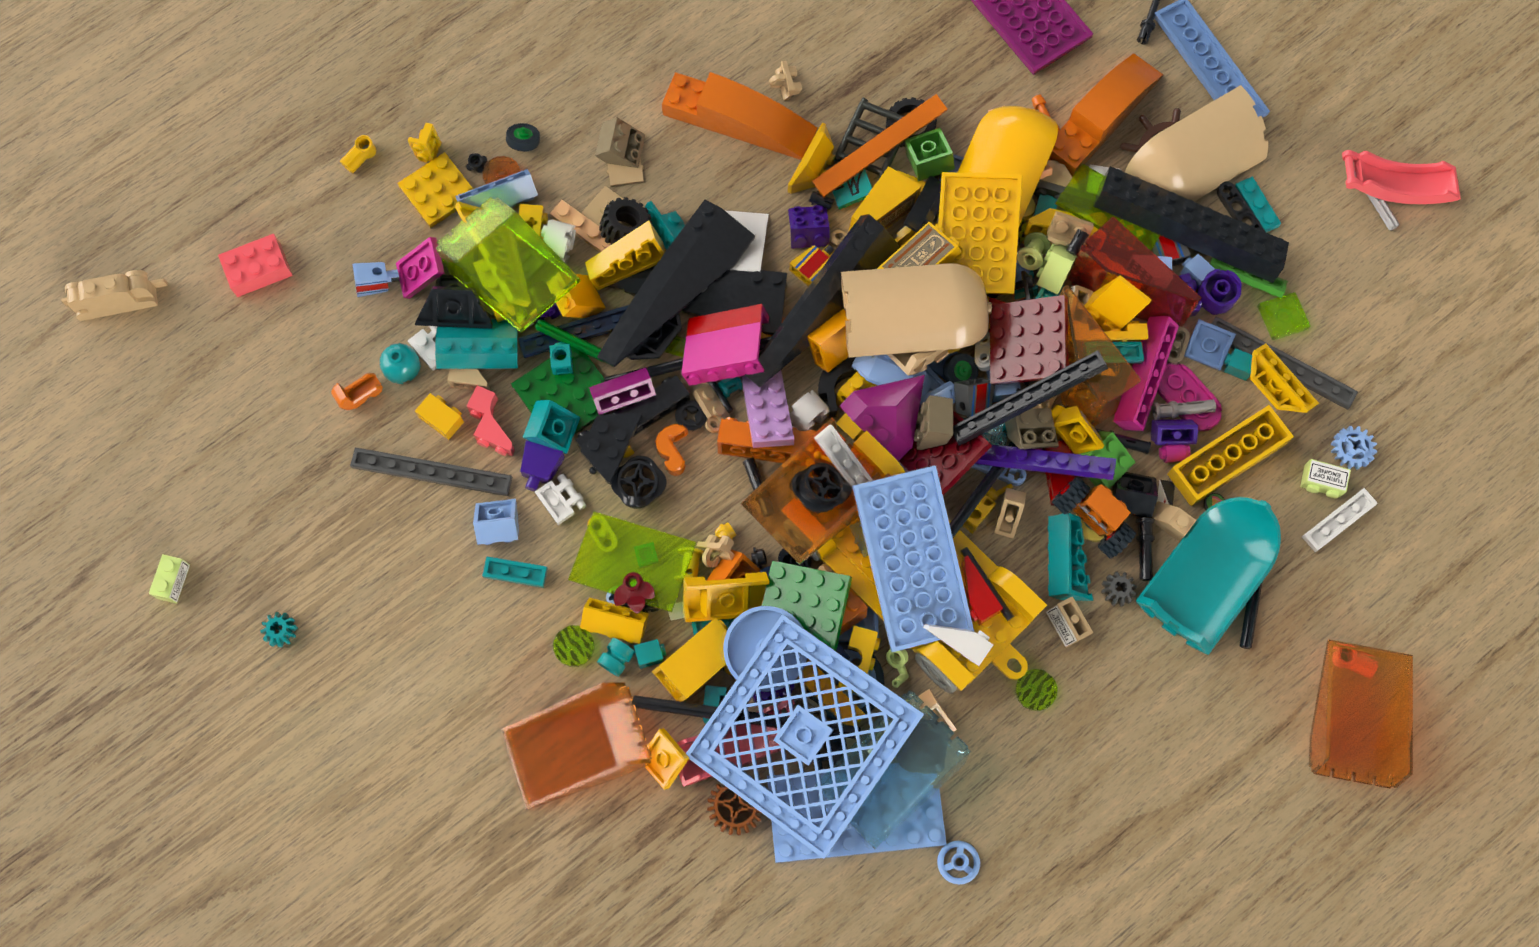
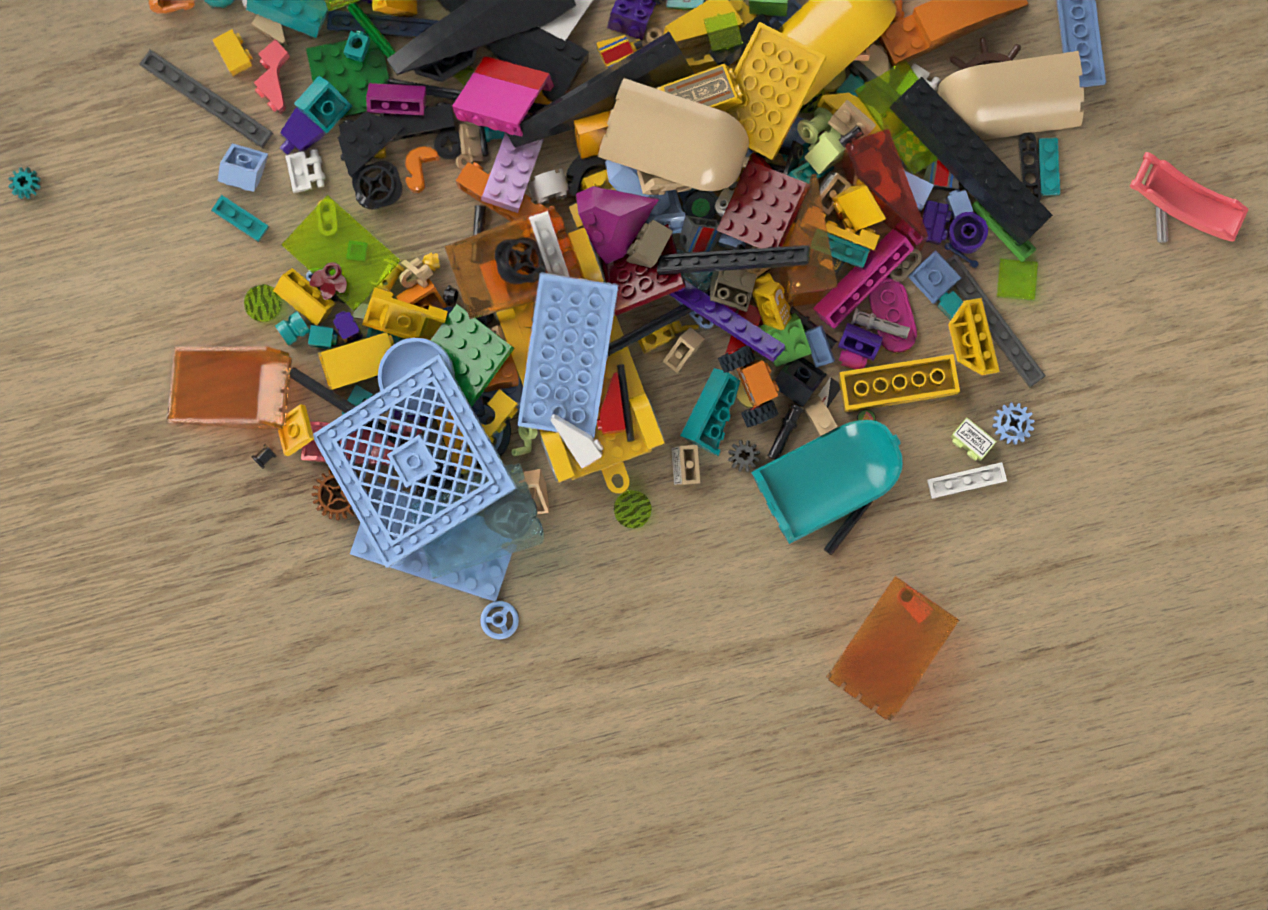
camera: 30 degrees right, 10 degrees up
(642, 800) = (264, 456): none -> black bush
(672, 631) = (347, 327): none -> dark purple brick
(907, 200) = (723, 31): none -> clear neon green piece
(1143, 458) = (819, 346): none -> medium blue tile
(1237, 318) = (973, 264): none -> dark blue hinge

